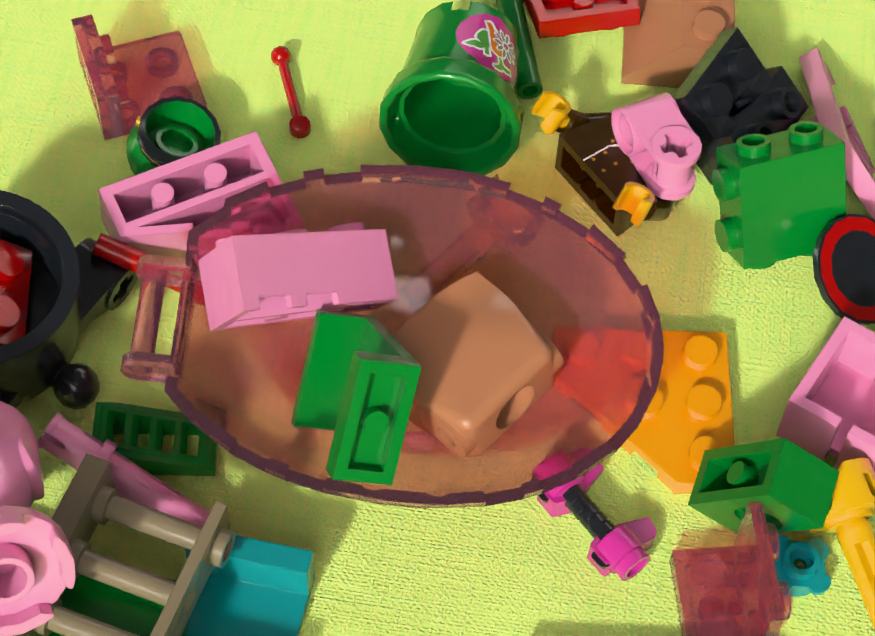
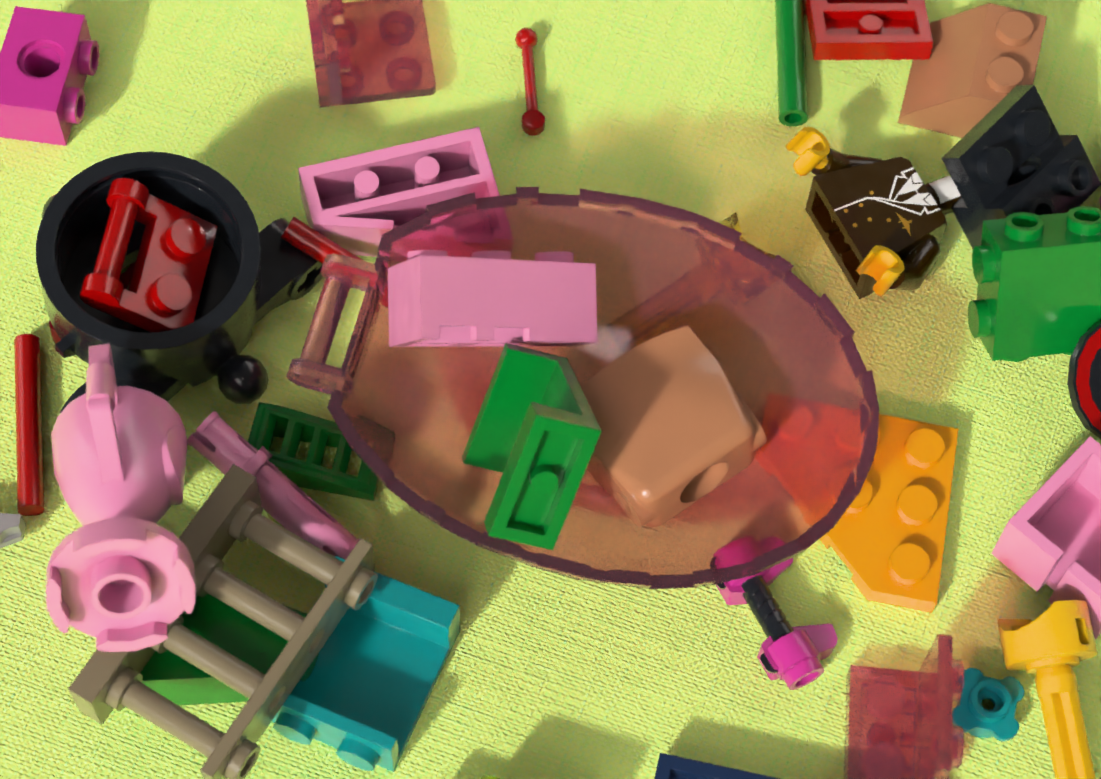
camera: 10 degrees right, 5 degrees up
(170, 132) = (390, 113): green piece -> none
(456, 92) = (708, 113): green piece -> none
(658, 144) = (920, 207): bright pink piece -> none
(777, 472) = (986, 616): green brick -> none

